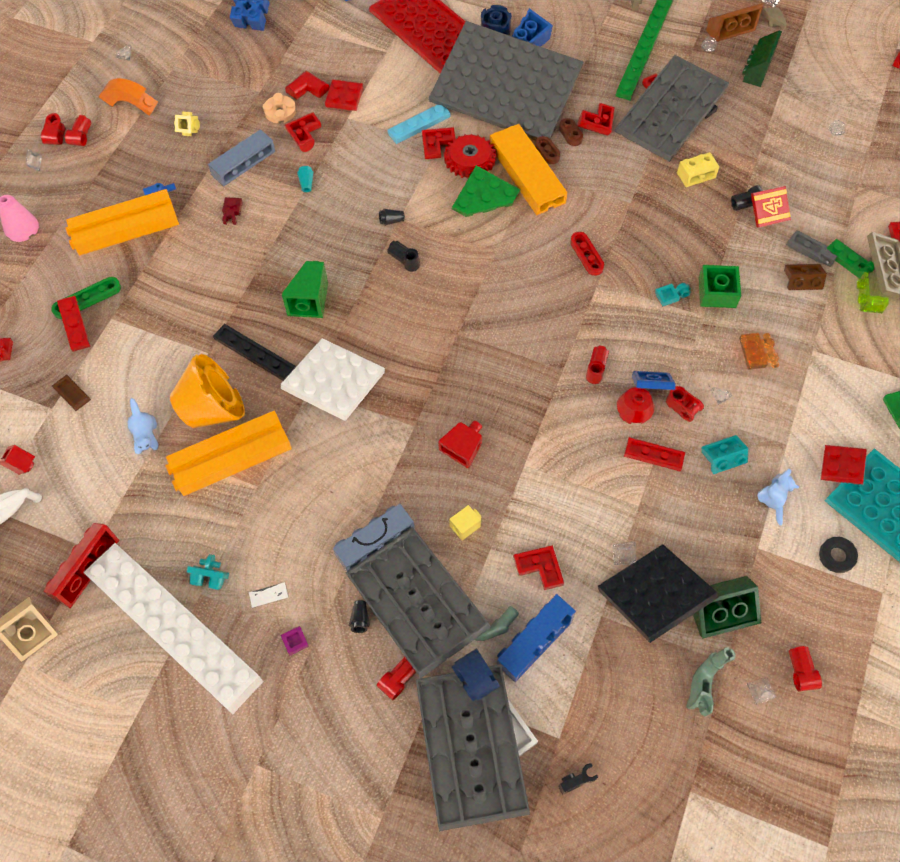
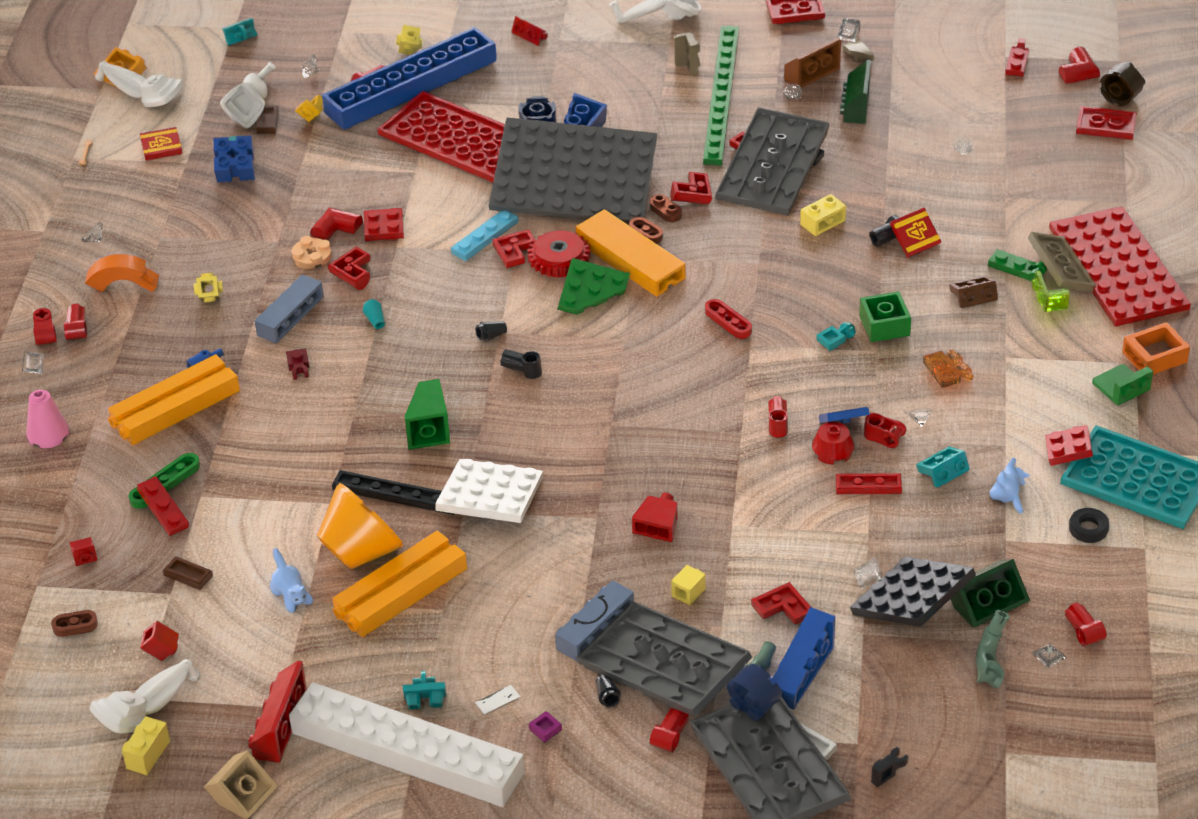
camera: 15 degrees left, 20 degrees down
(811, 248) = (973, 263): dark grey hinge -> none

